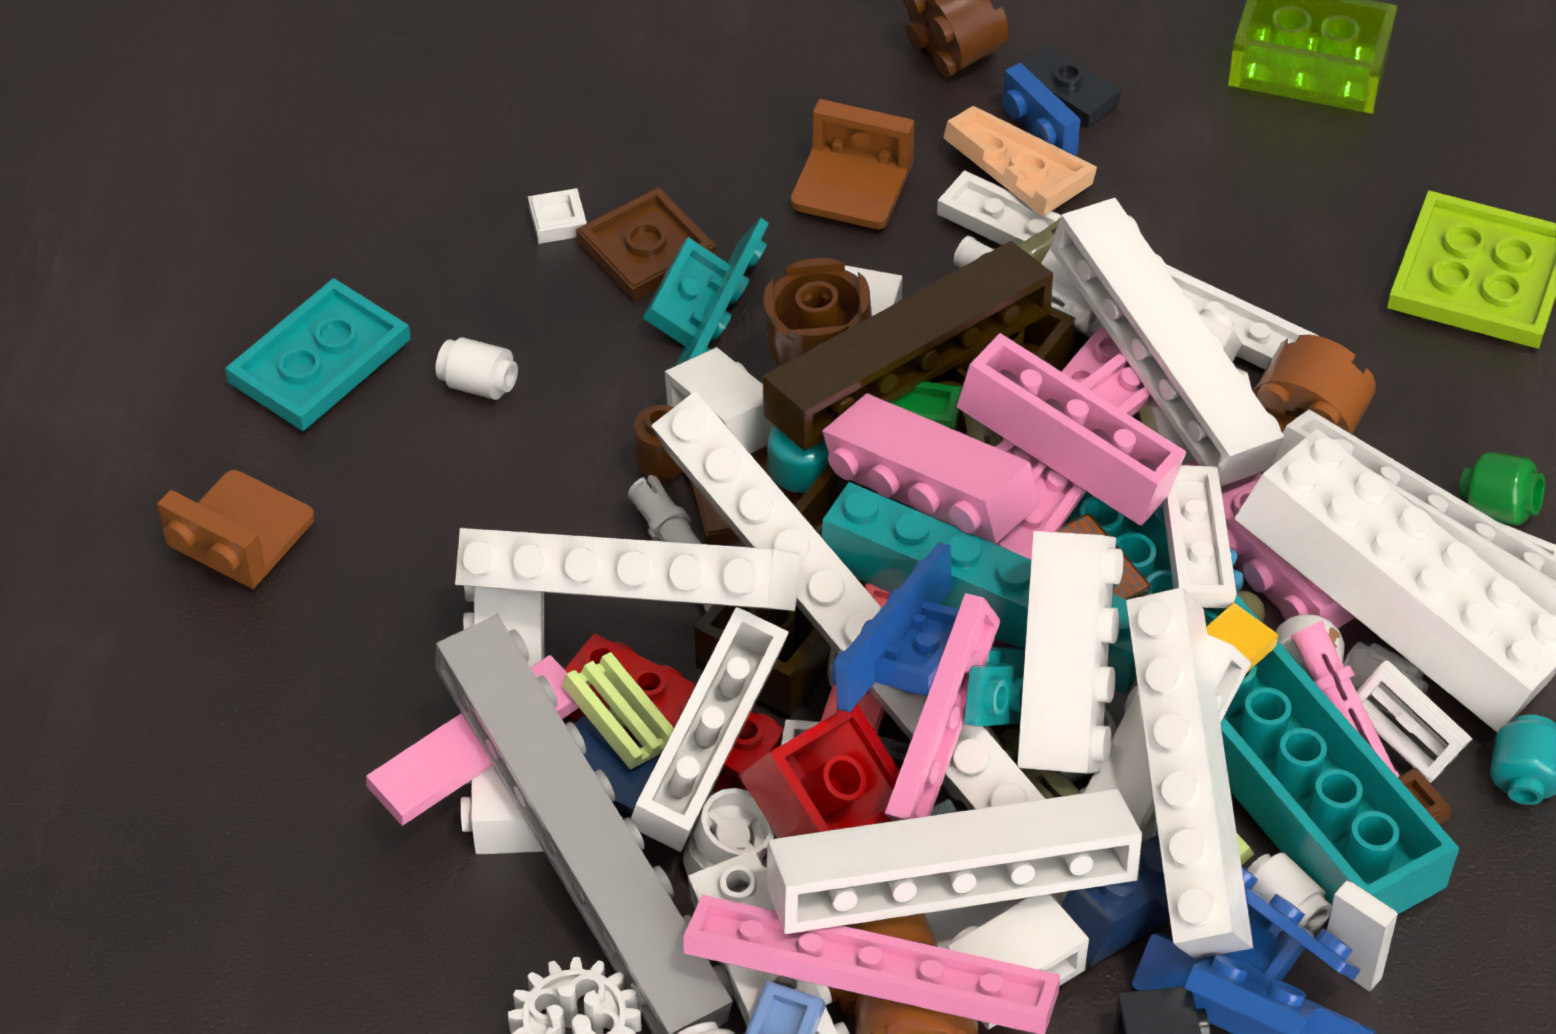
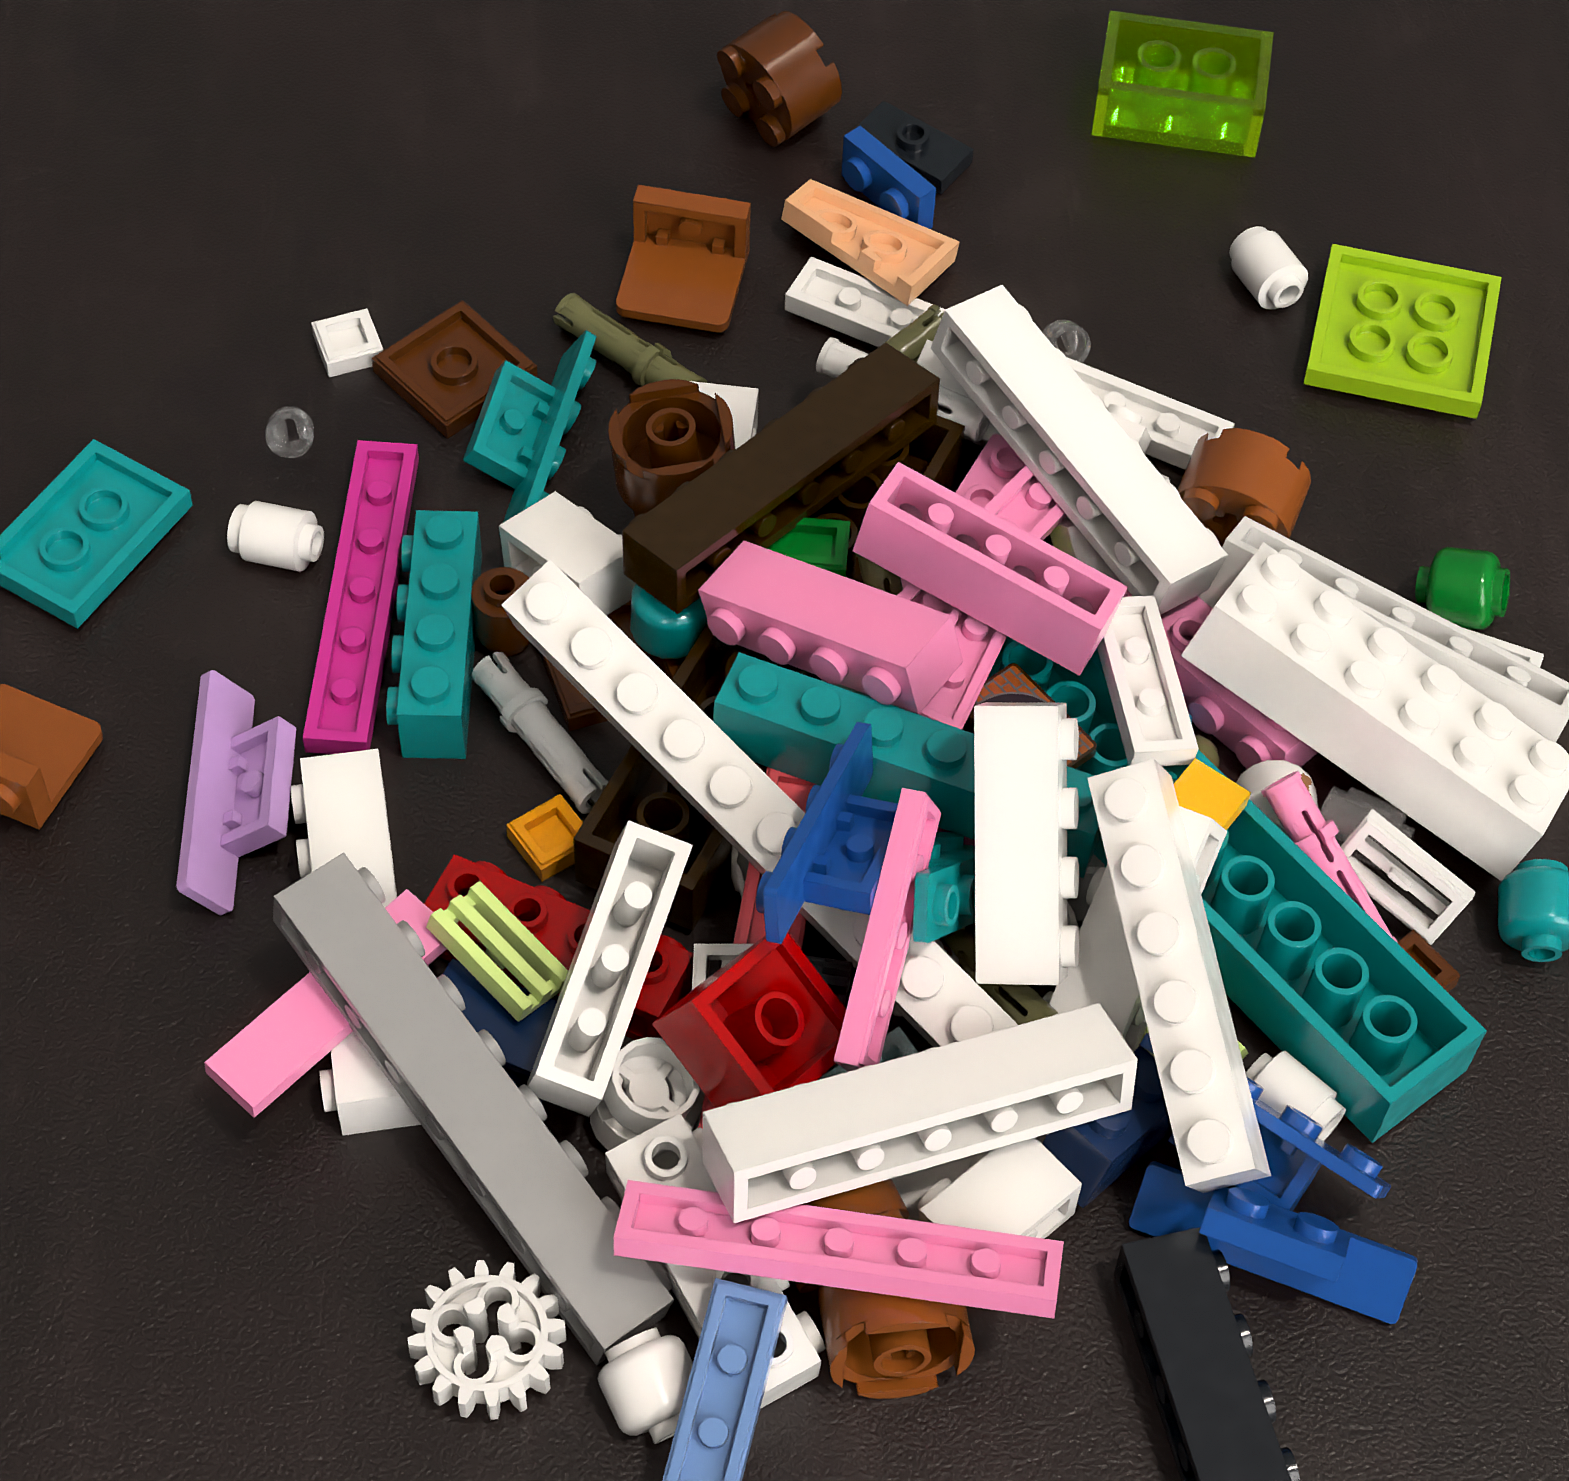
camera: 10 degrees left, 5 degrees up
(414, 570) = (234, 791): none -> lavender bracket
(489, 289) = (277, 433): none -> clear hinge
(545, 416) = (361, 599): none -> dark pink plate
(604, 450) = (438, 635): none -> teal brick
(628, 568) = (491, 782): white brick -> none
(673, 631) = (546, 836): none -> light orange tile
(786, 229) = (619, 344): none -> olive pin
(1187, 254) = (1073, 336): none -> clear hinge
(1366, 928) = (1393, 1137): white tile -> none
(1368, 207) = (1268, 268): none -> white brick

